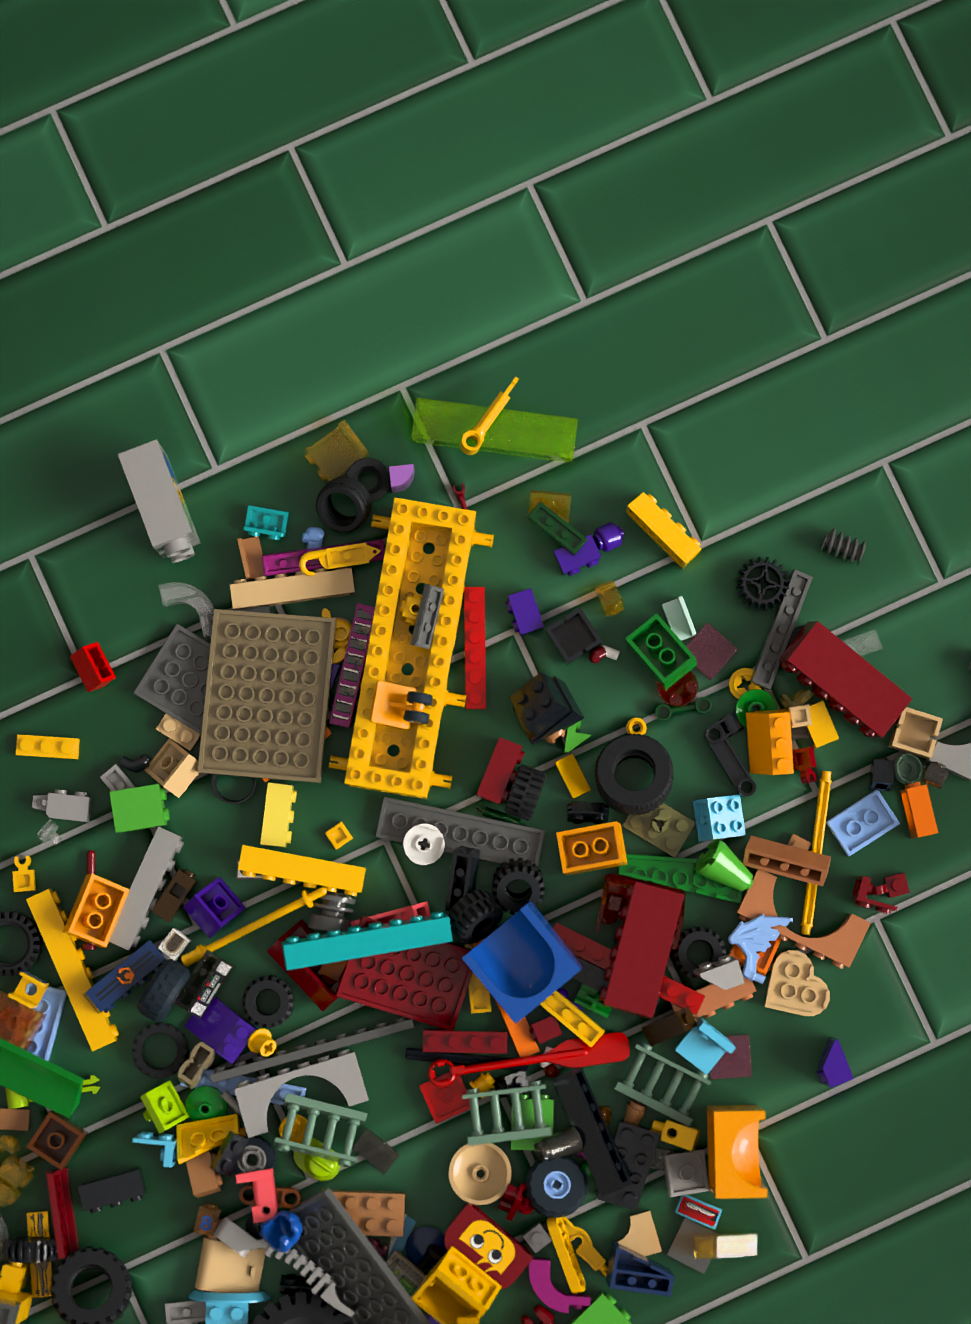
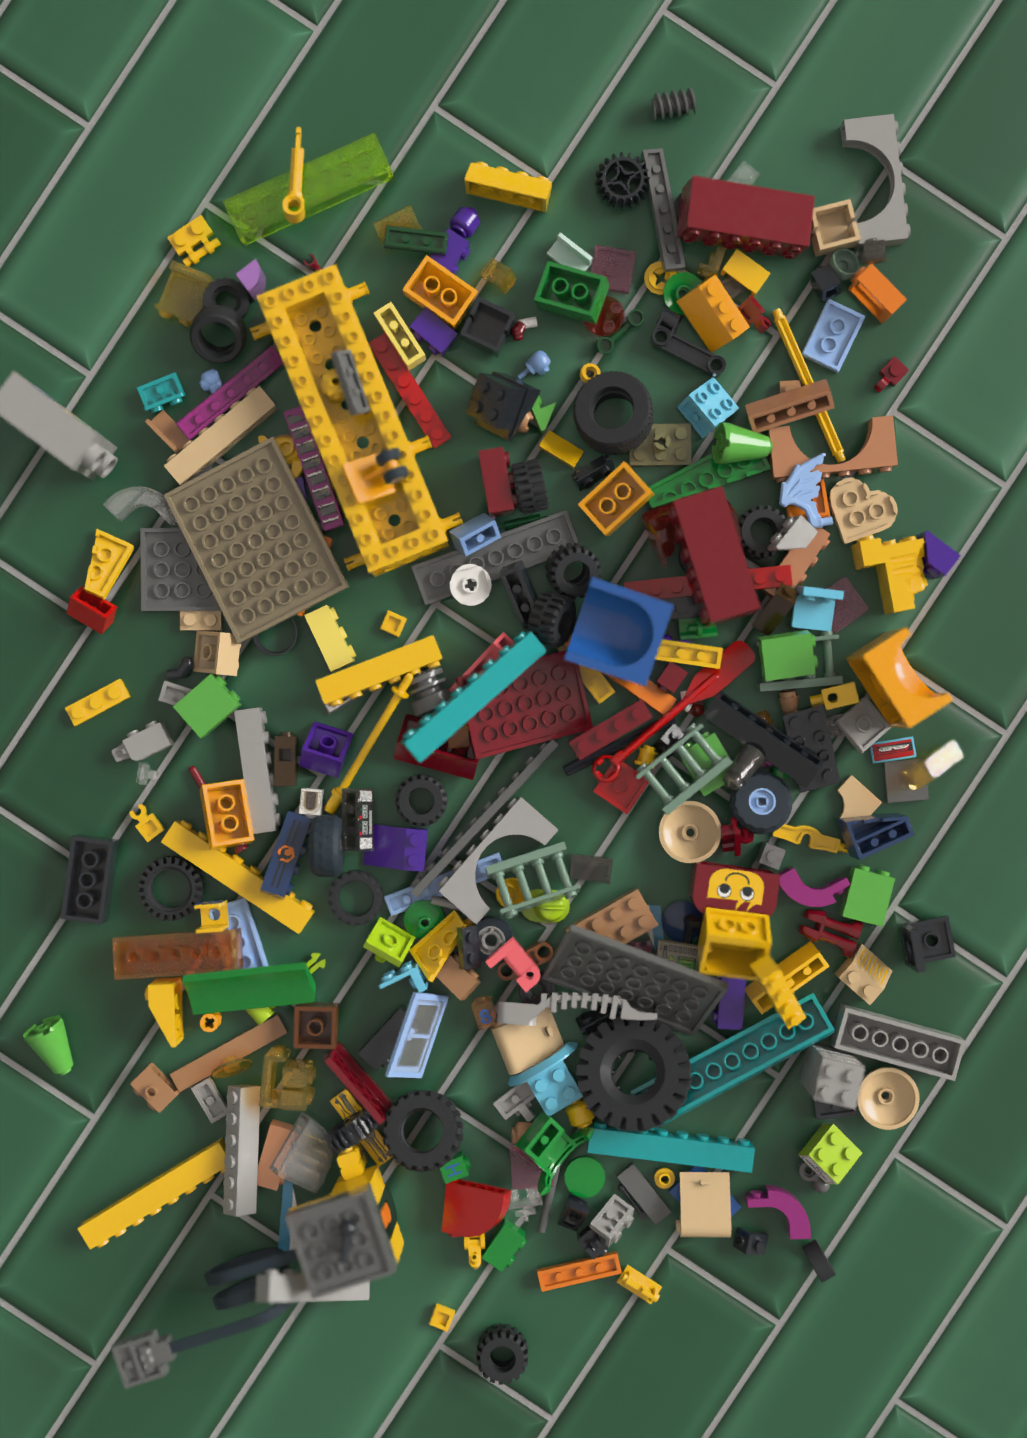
camera: 25 degrees left, 5 degrees up
(132, 634) = (107, 562): none -> yellow wing
(137, 1202) = (417, 1035): none -> clear door
(200, 1060) = (393, 896): dark tan brick -> none
(261, 1042) = (437, 837): yellow piece -> none
(282, 1231) = (554, 984): blue hair -> none
(339, 557) = (243, 382): yellow plate -> none
(372, 407) = (192, 235): none -> yellow plate
(454, 803) = (474, 534): none -> medium blue brick
(494, 598) = (400, 336): none -> light yellow brick
(551, 583) = (440, 292): none -> light orange slope
(566, 1254) = (804, 854): yellow beam -> none
(596, 691) = (536, 363): none -> medium blue piece
(655, 1072) = (787, 655): none -> bright green brick
(796, 1057) = (897, 568): none -> yellow brick
(800, 716) = (726, 273): tan tile -> none
(862, 889) = (868, 394): dark red bracket -> none

